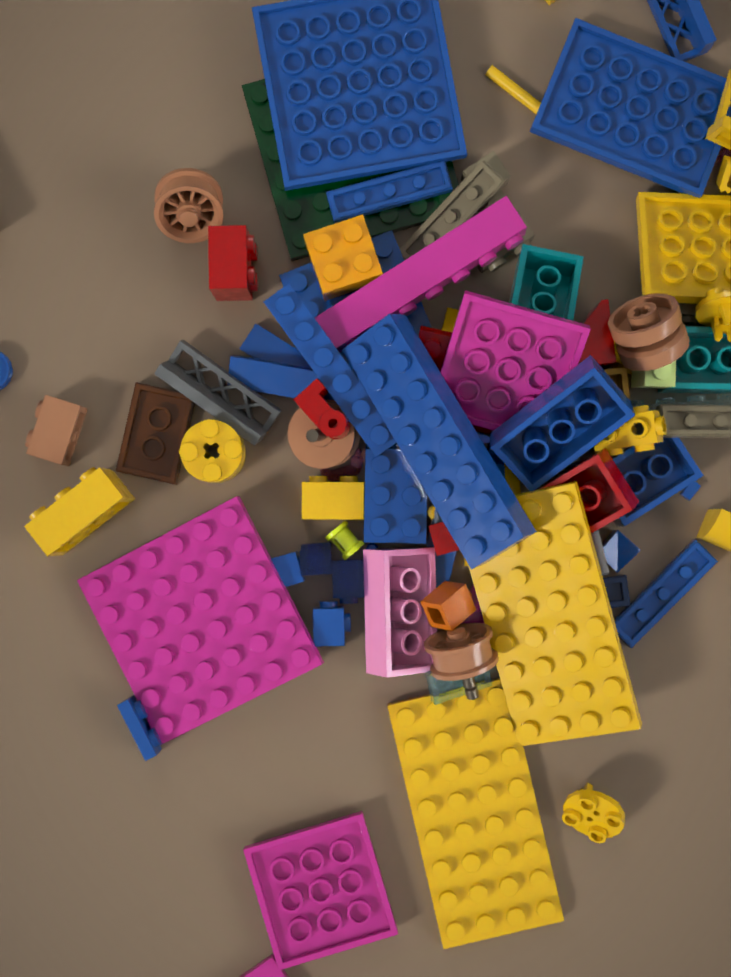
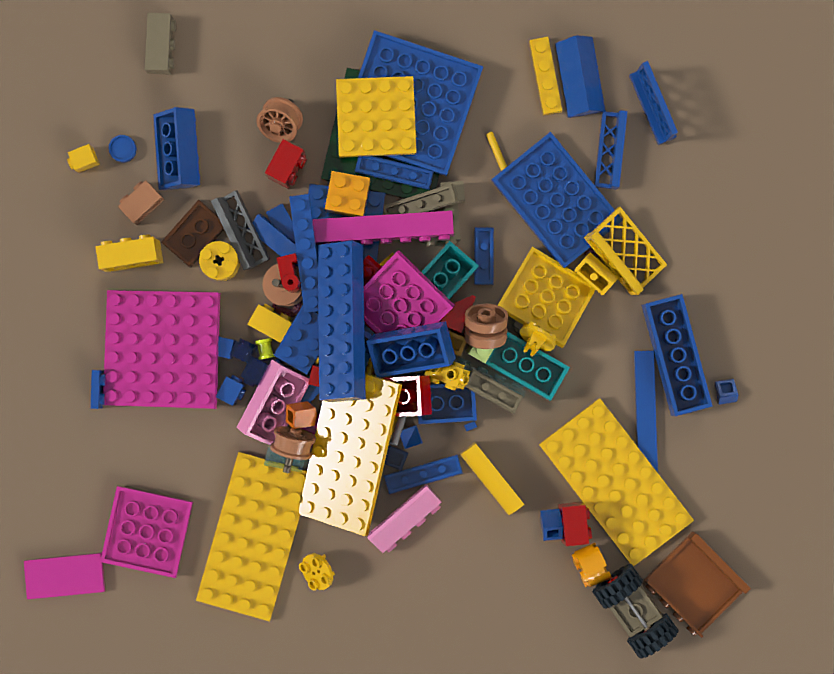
camera: 20 degrees right, 0 degrees up
(65, 327) = (176, 148): none -> blue slope
(322, 125) = (376, 116): none -> yellow plate
(576, 239) = (484, 255): none -> blue tile
(674, 670) = (404, 518): none -> bright pink slope

